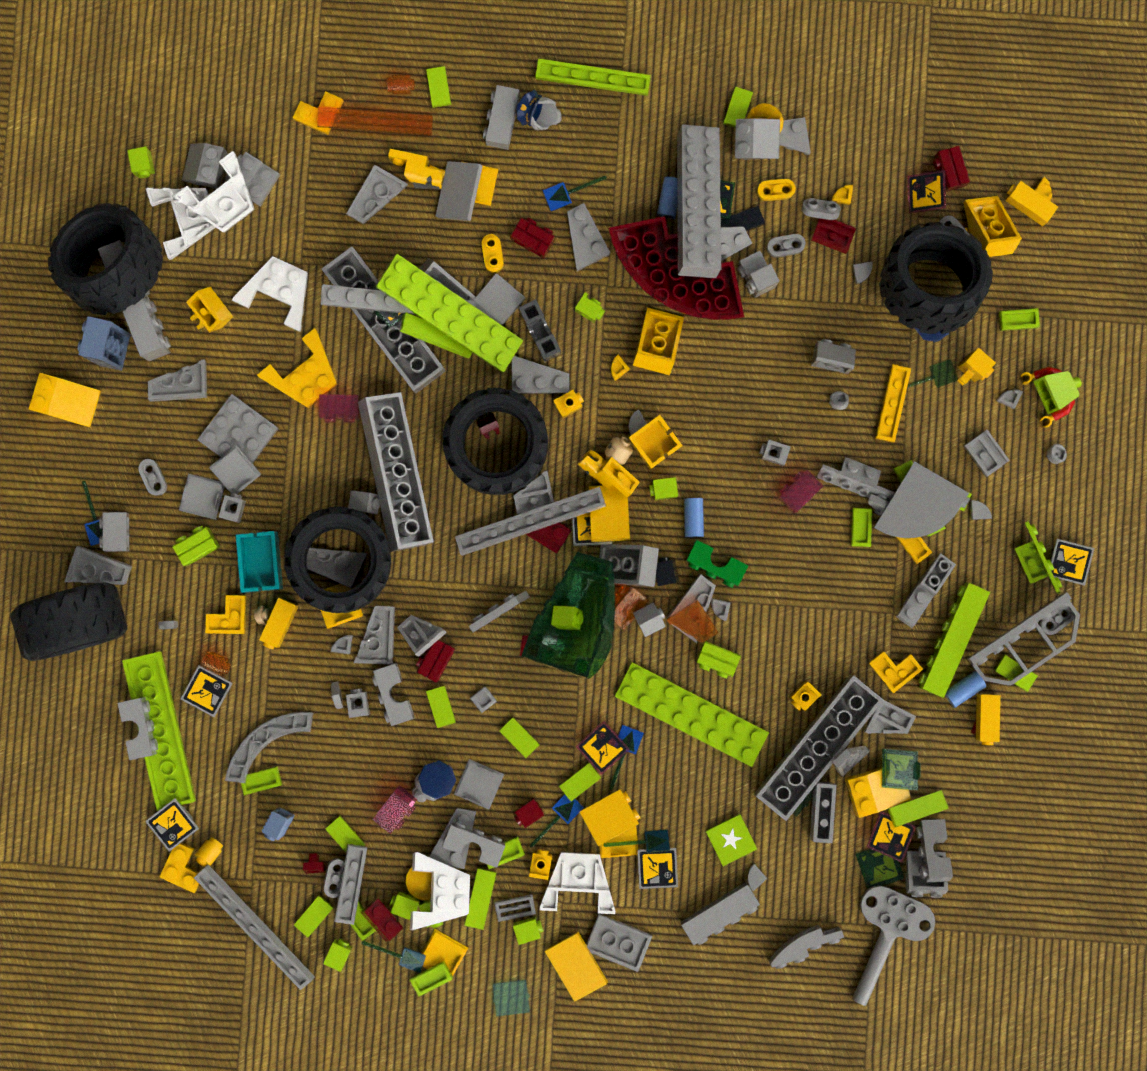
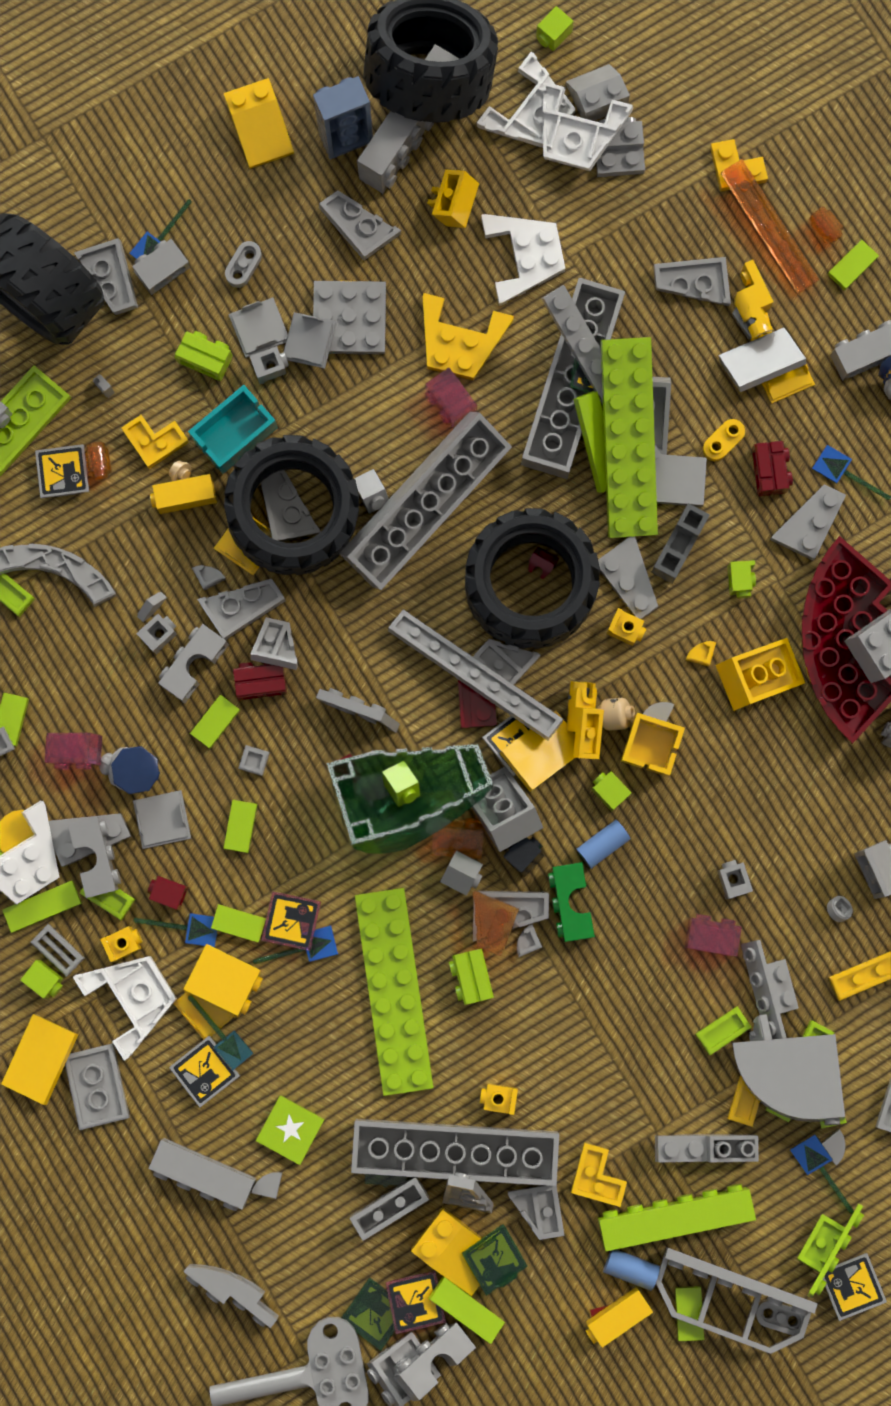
camera: 55 degrees right, 5 degrees down
(976, 528) = (813, 1156): none -> piece

